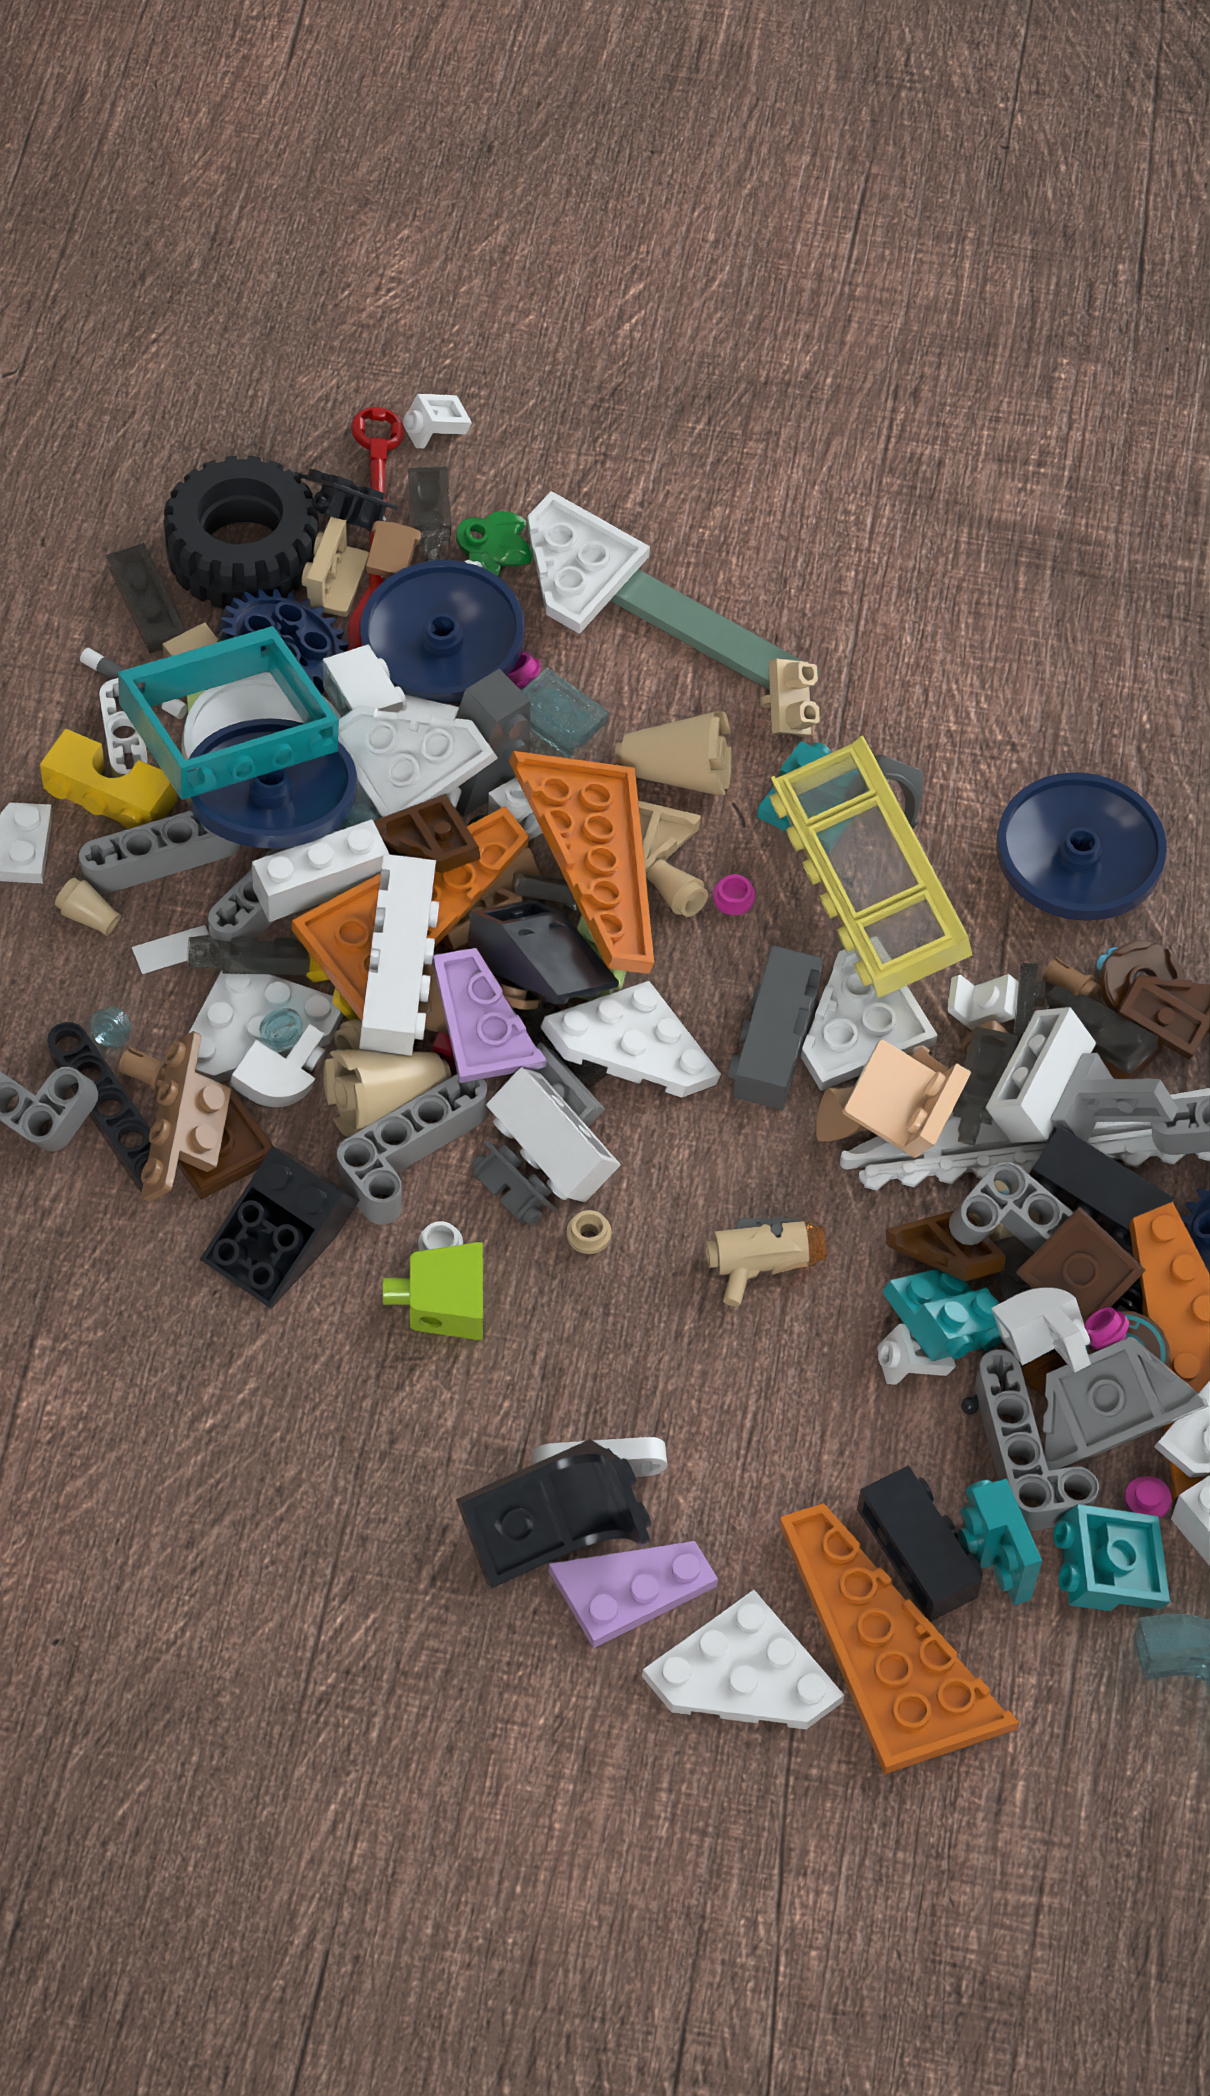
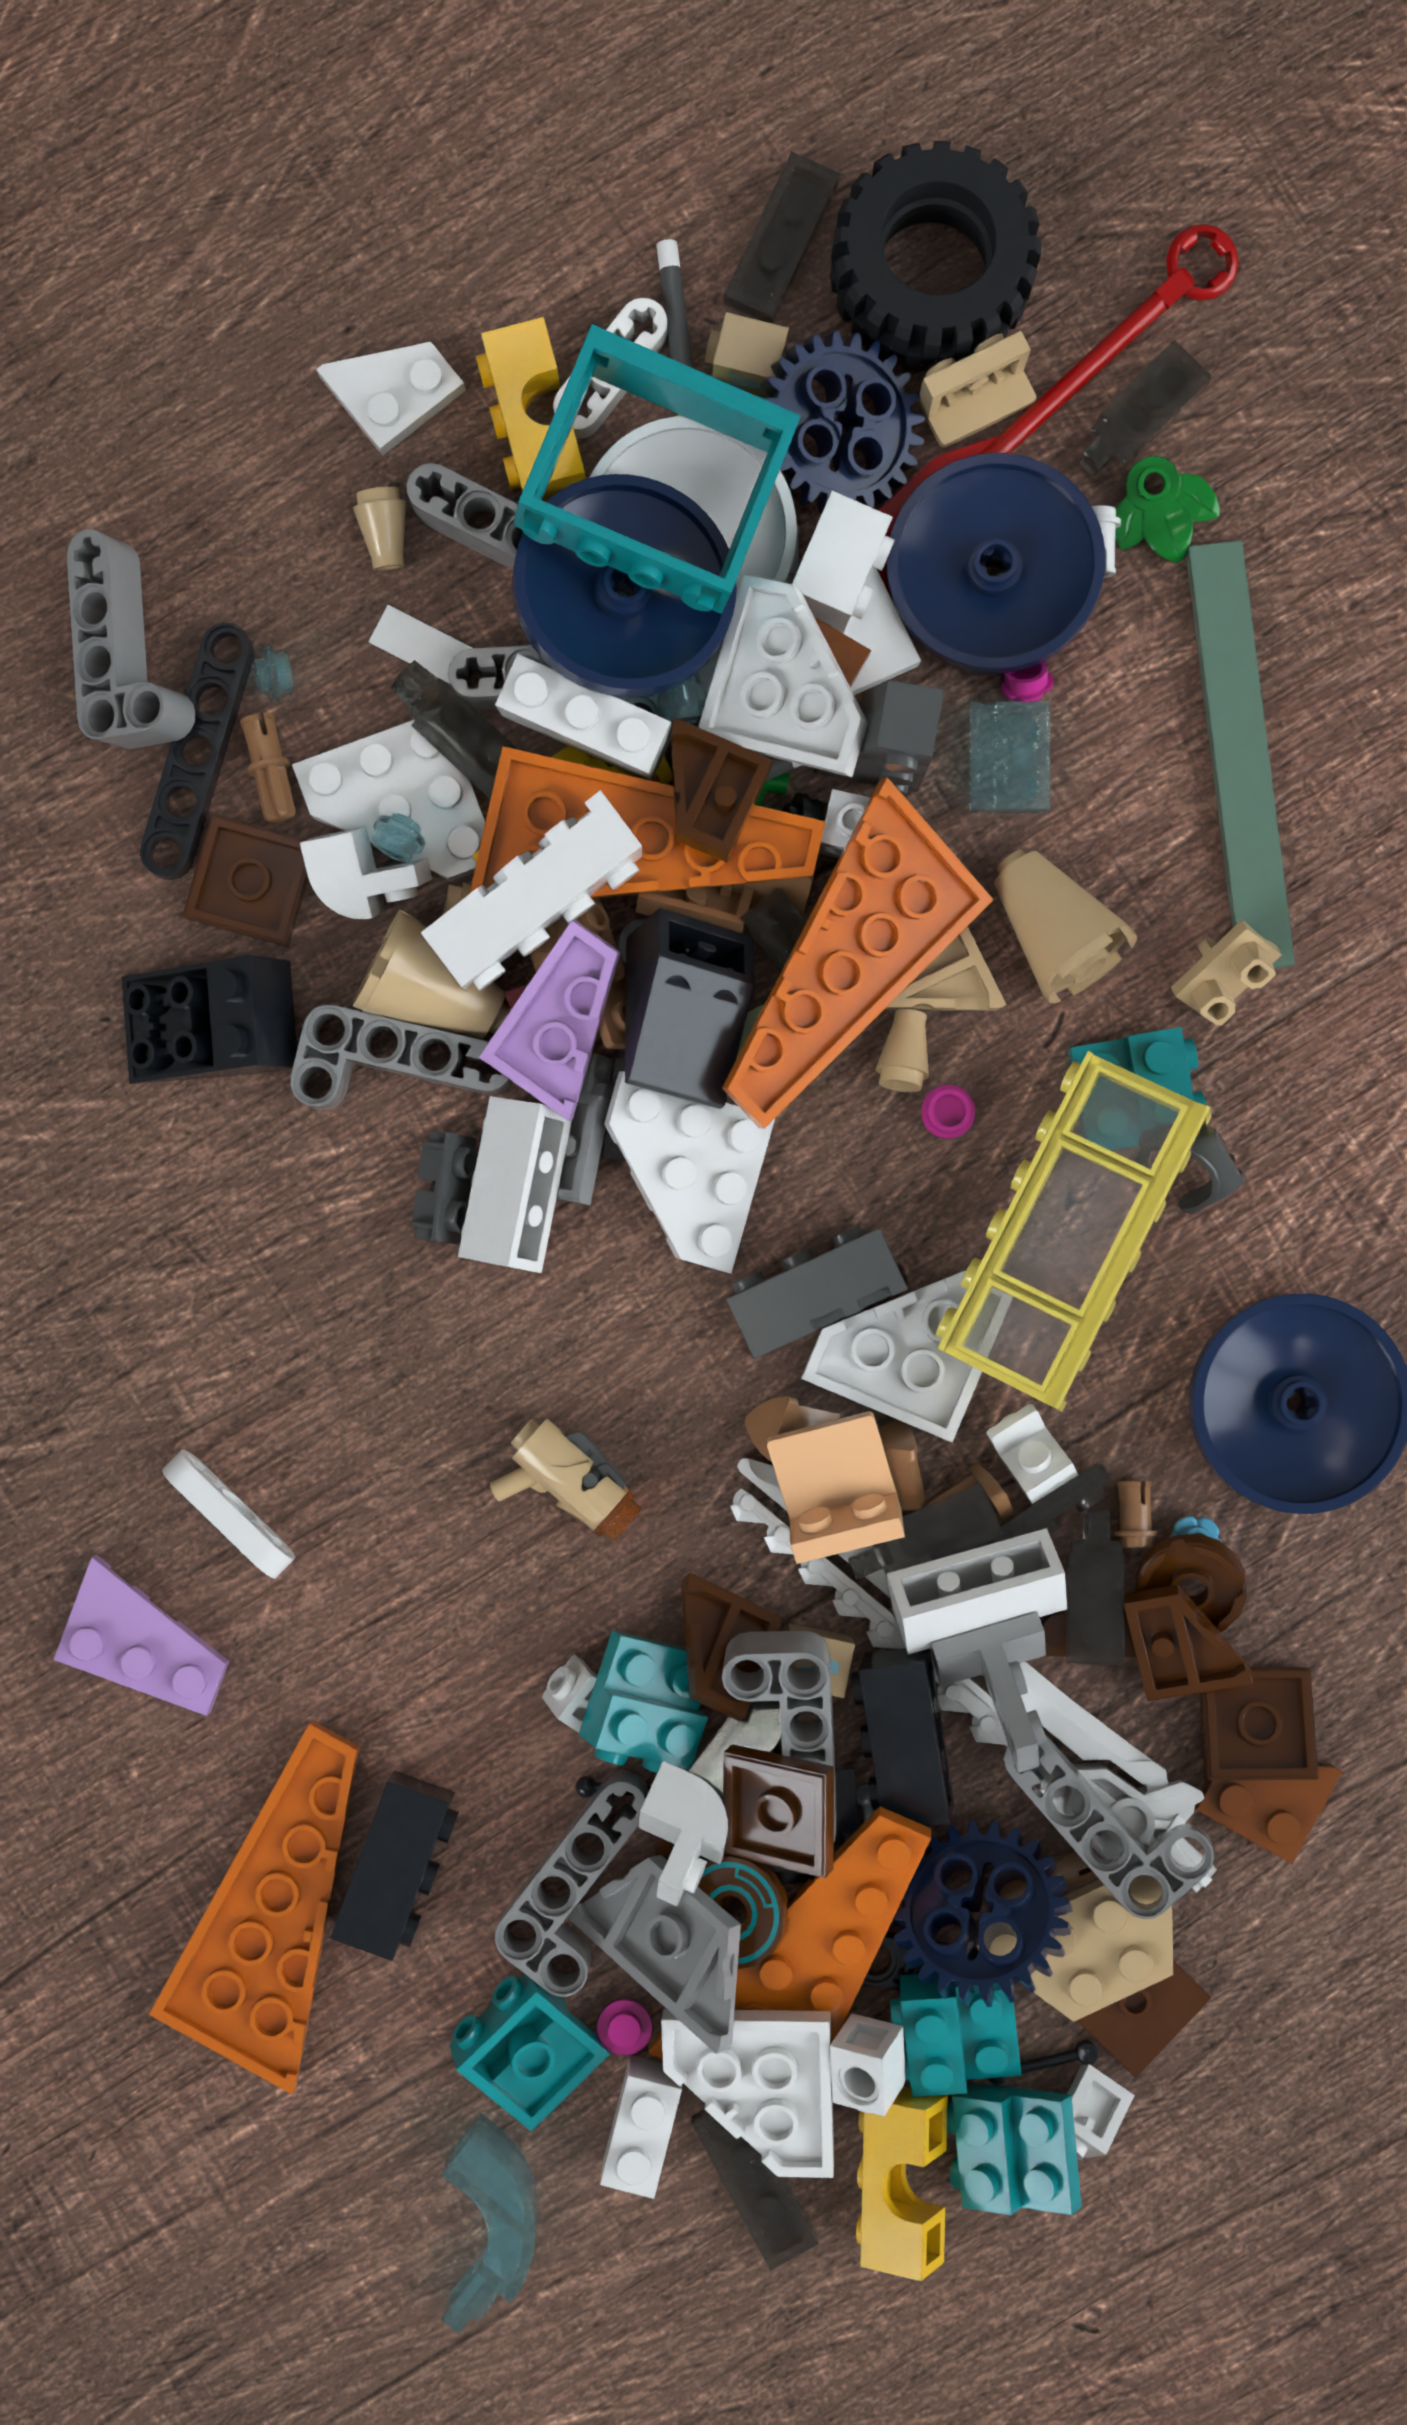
camera: 55 degrees right, 30 degrees up
(187, 1119) = (226, 844): medium nougat bracket -> none
(347, 500) = (1064, 320): black hinge -> none
(391, 548) = (1050, 422): medium nougat tile -> none
(435, 415) = (1267, 306): white bracket -> none
(439, 1235) = (324, 1177): white plate -> none
(442, 1291) = (270, 1227): lime torso -> none
(553, 1510) = (129, 1523): black bracket -> none
(579, 560) = (1209, 616): white plate -> none
(589, 1221) = (438, 1294): tan plate -> none
(744, 1671) = (145, 1808): white plate -> none
(1000, 1537) = (448, 1935): teal plate -> none
(1106, 1328) = (732, 1887): dark pink plate -> none

